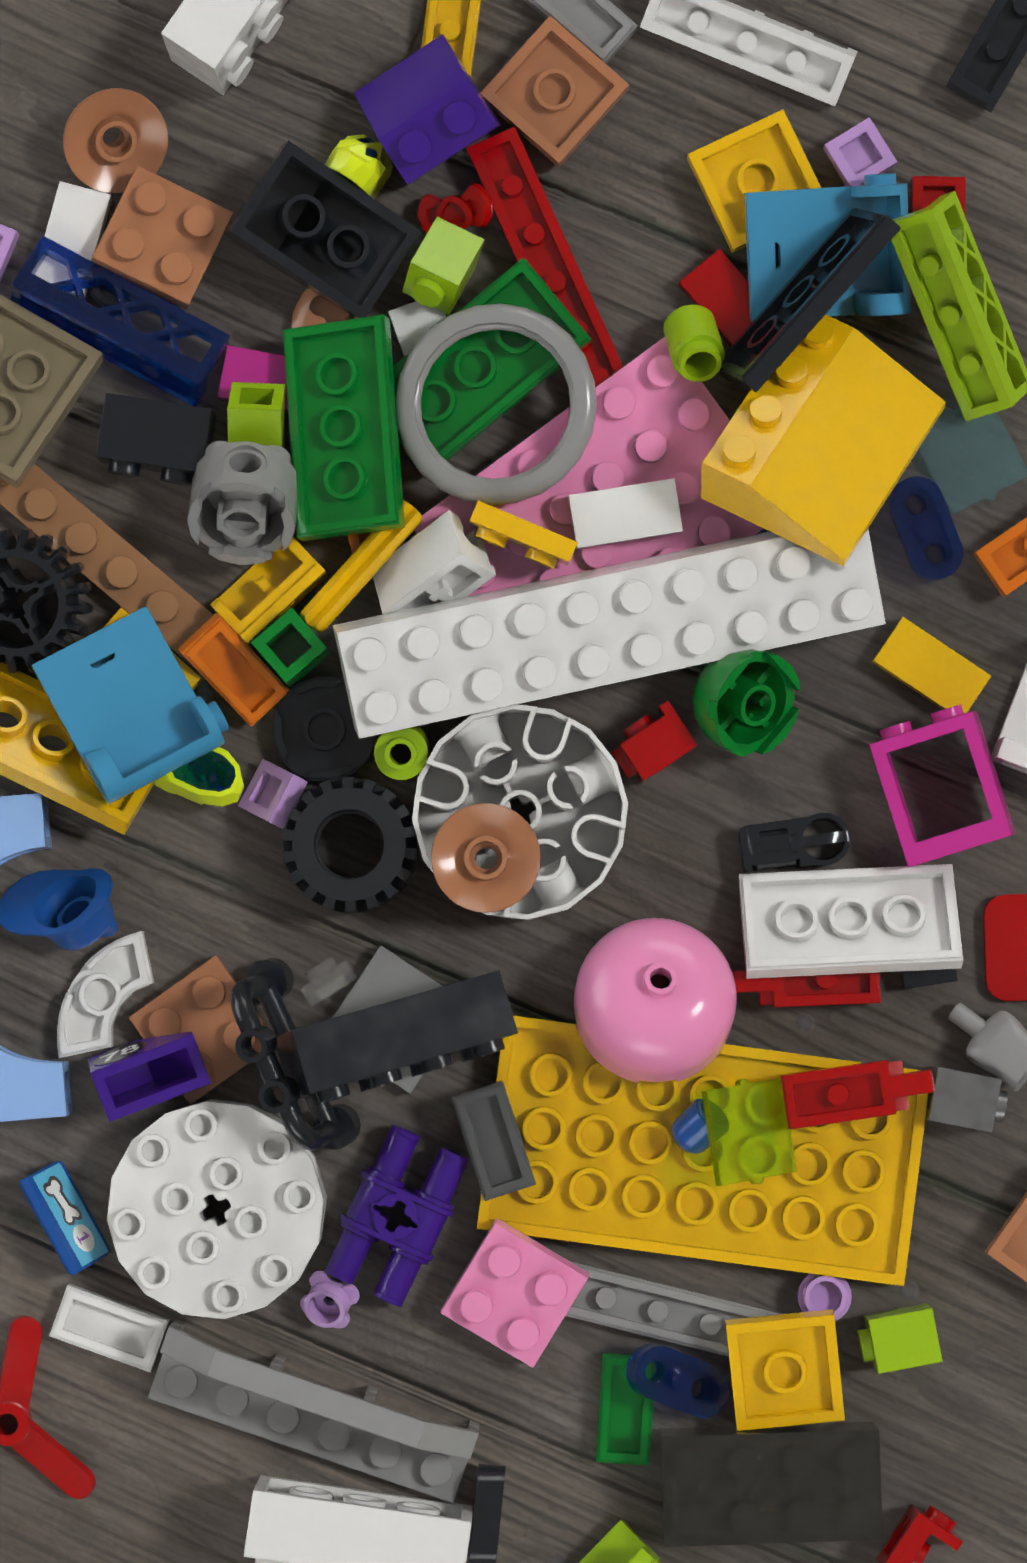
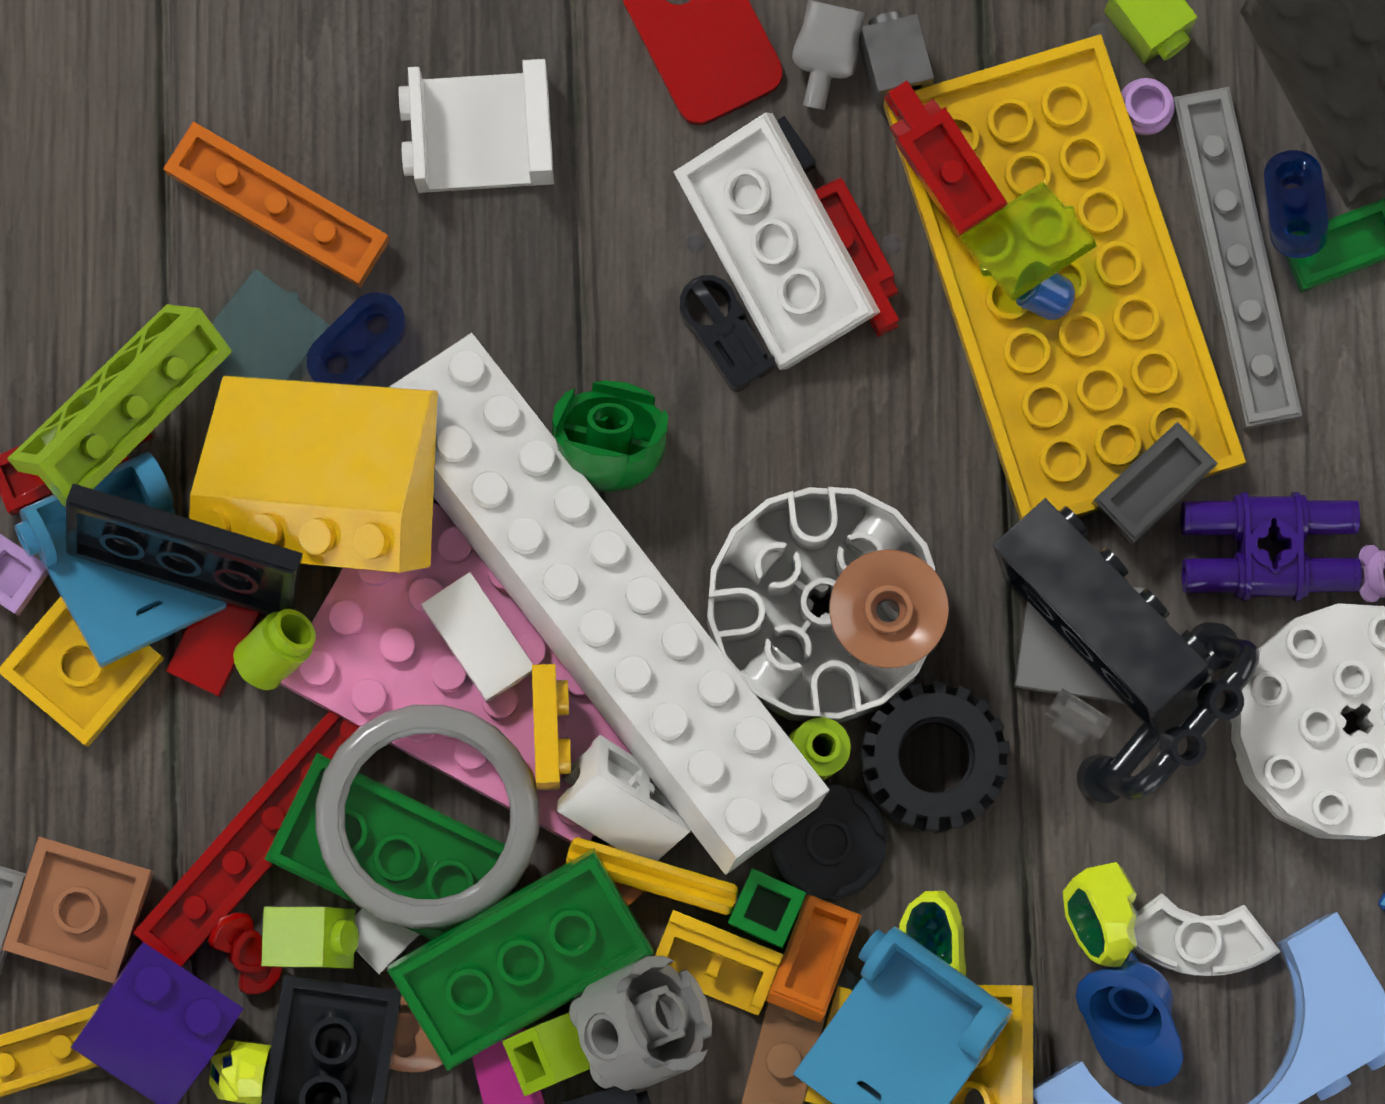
camera: 115 degrees left, 5 degrees down
(147, 1073) = (1255, 852): dark purple slope -> none
(156, 923) = (1102, 913): none -> neon yellow rock
(200, 1006) = (1185, 828): nougat plate -> none
(272, 793) = (918, 860): lavender plate -> none
(514, 1293) = (1289, 396): bright pink plate -> none
(637, 1023) = (979, 397): bright pink cylinder -> none
(653, 744) = (692, 507): red brick -> none
(785, 1370) = (1236, 107): yellow plate -> none
(930, 667) = (491, 277): yellow tile -> none
(944, 723) = (649, 174): dark pink window -> none

